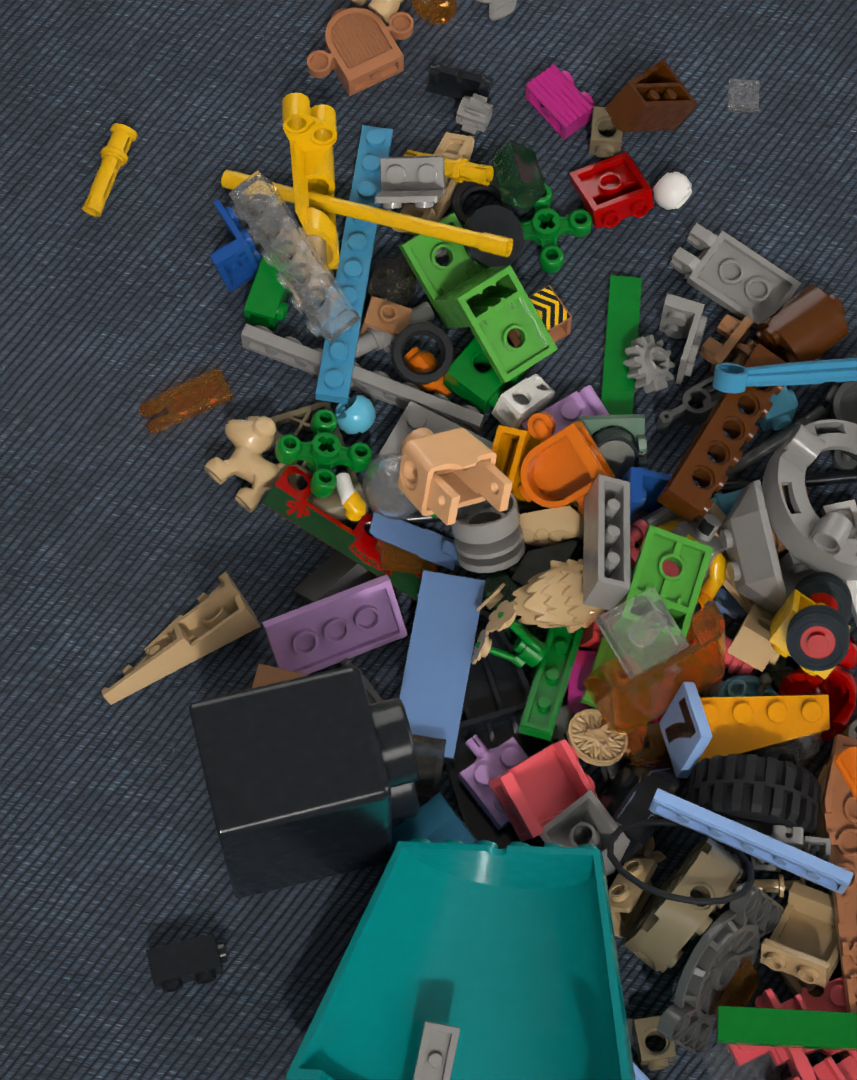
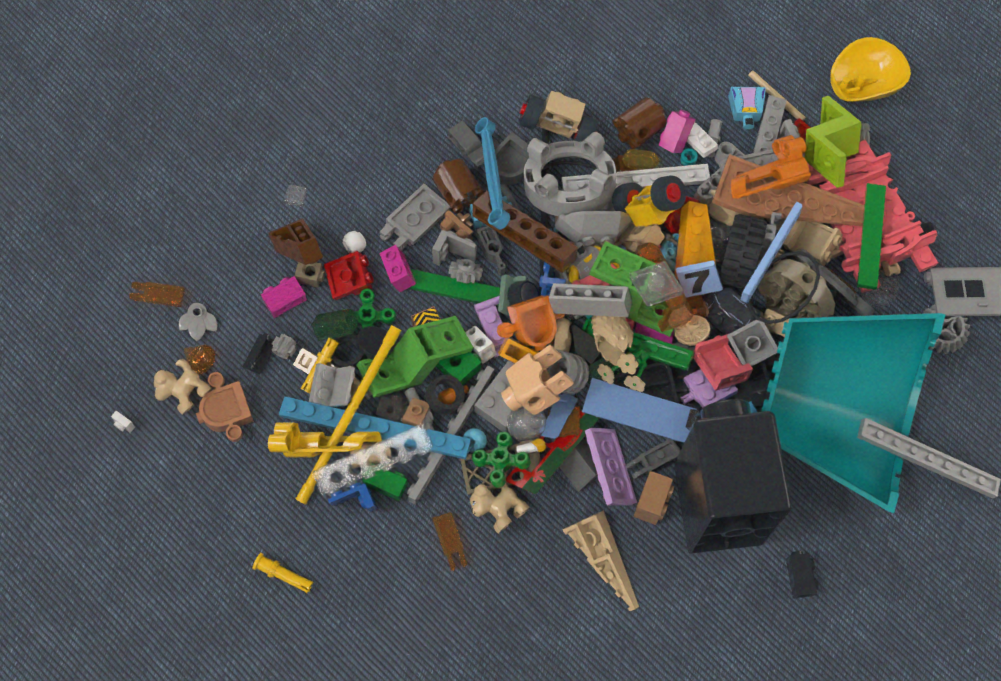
camera: 85 degrees left, 0 degrees up
(634, 257) = (397, 268): none -> dark pink brick

